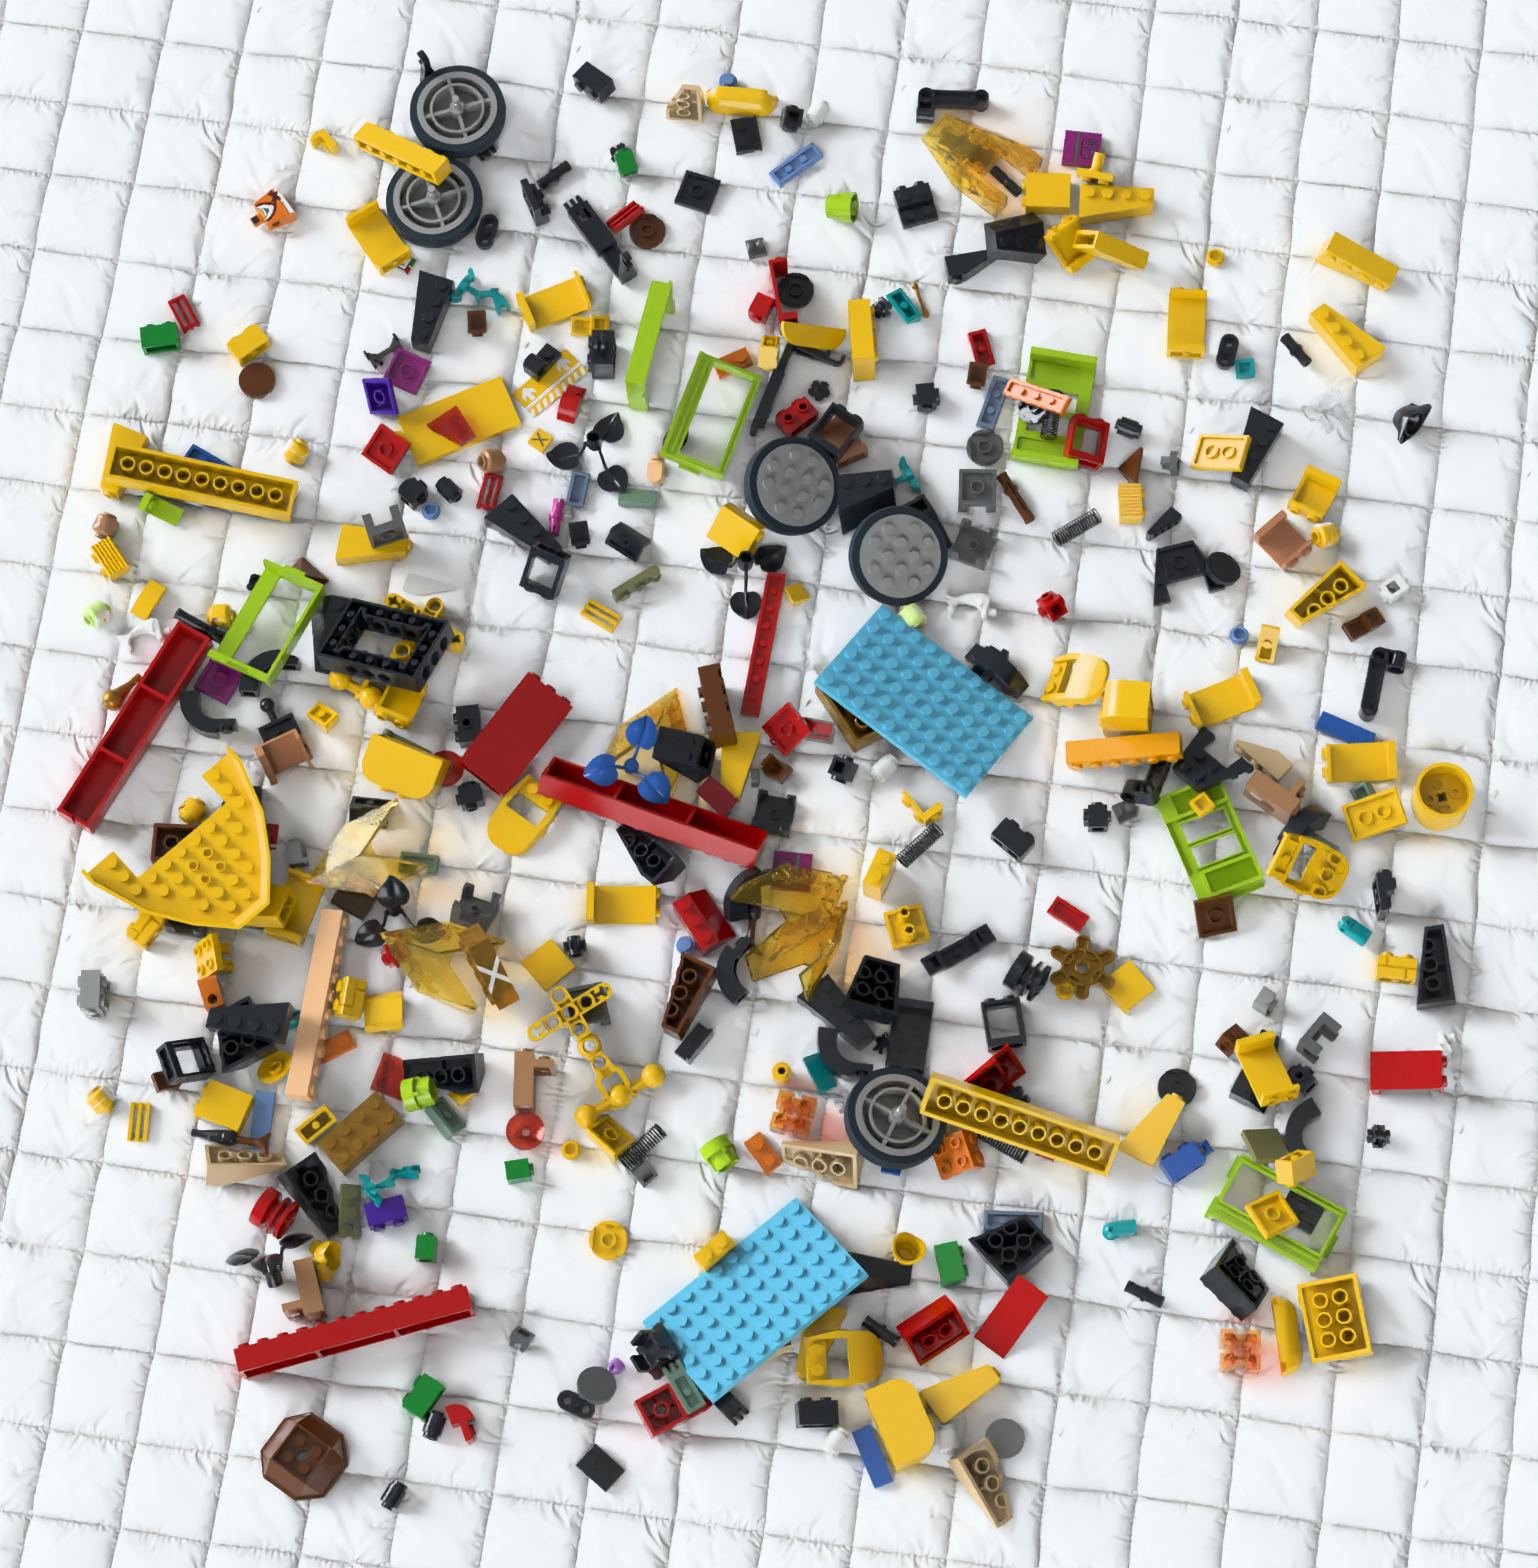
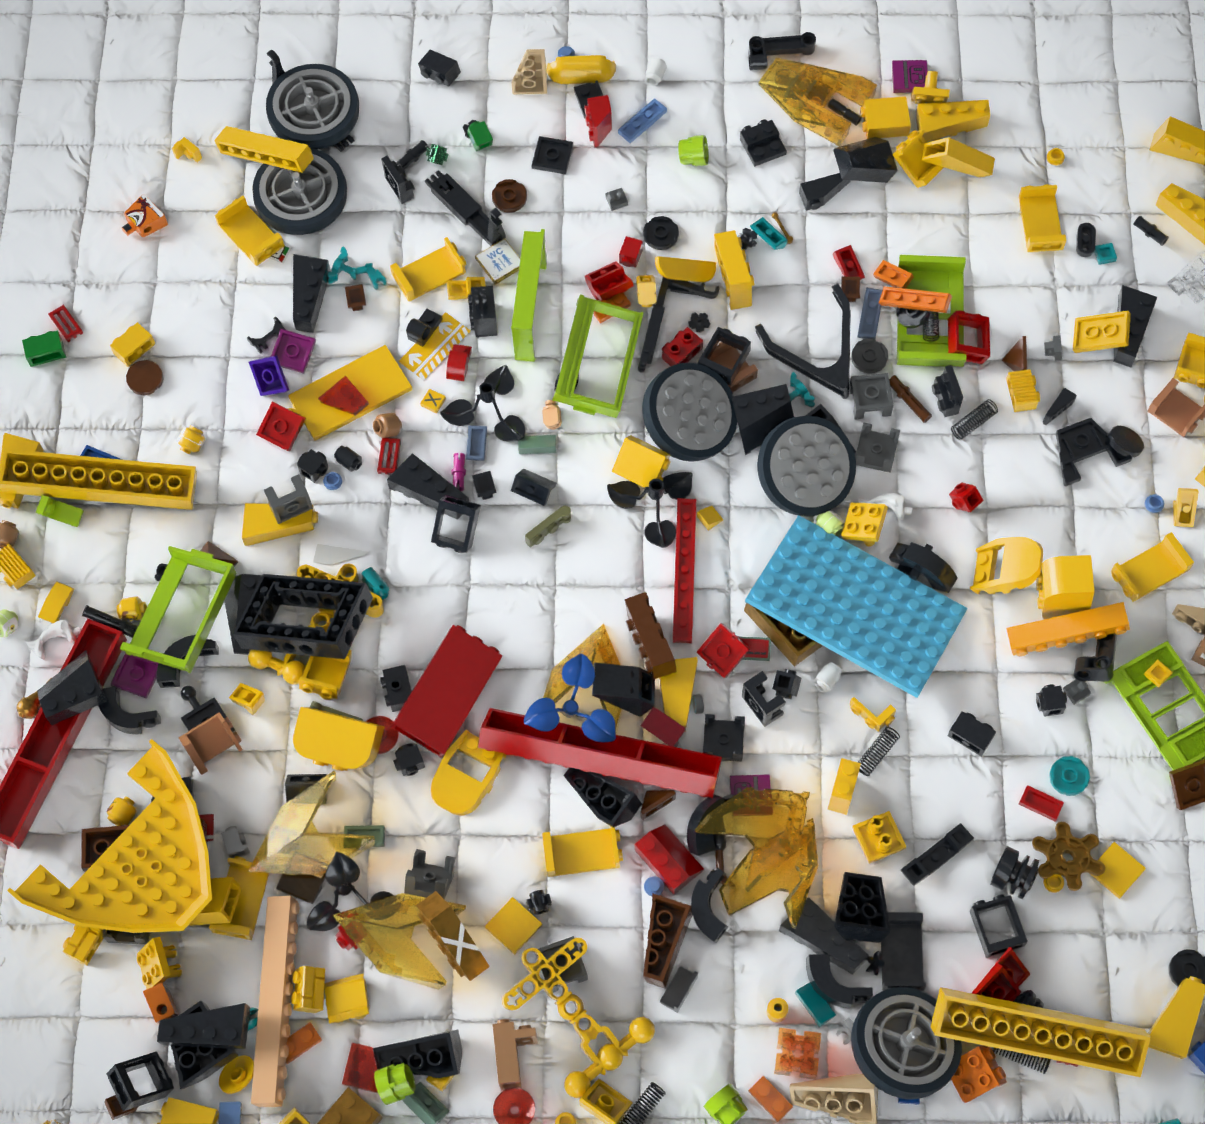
camera: 10 degrees left, 5 degrees down
(93, 993) = (33, 1020): light grey brick -> none
(157, 689) = (71, 691): none -> black wedge
(459, 619) = (375, 583): none -> teal piece
(487, 233) = (354, 215): black plate -> none
(578, 178) = (437, 154): none -> clear green gear
(587, 607) = (505, 550): yellow tile -> none
(625, 216) = (486, 184): red tile -> none
(626, 300) = (499, 261): none -> white tile
(699, 865) = (655, 800): none -> reddish brown slope
(733, 337) = (608, 281): none -> red brick
(749, 160) = (598, 118): none -> red slope
(775, 769) = (717, 692): reddish brown bracket -> none
(779, 268) = (641, 215): red panel -> none
(791, 118) = (632, 78): black brick -> none
(808, 773) = (752, 695): none -> black panel
(926, 397) = (805, 315): black brick -> none
(945, 619) = (864, 522): none -> yellow plate
(947, 465) = (832, 377): none -> black piece
(1022, 366) = (893, 275): none -> orange plate
(1053, 497) = (948, 392): none -> black plate
(1100, 892) = (1069, 776): none -> teal tile
(1128, 428) = (1006, 320): black brick -> none
(1201, 769) = (1151, 639): black wing -> none

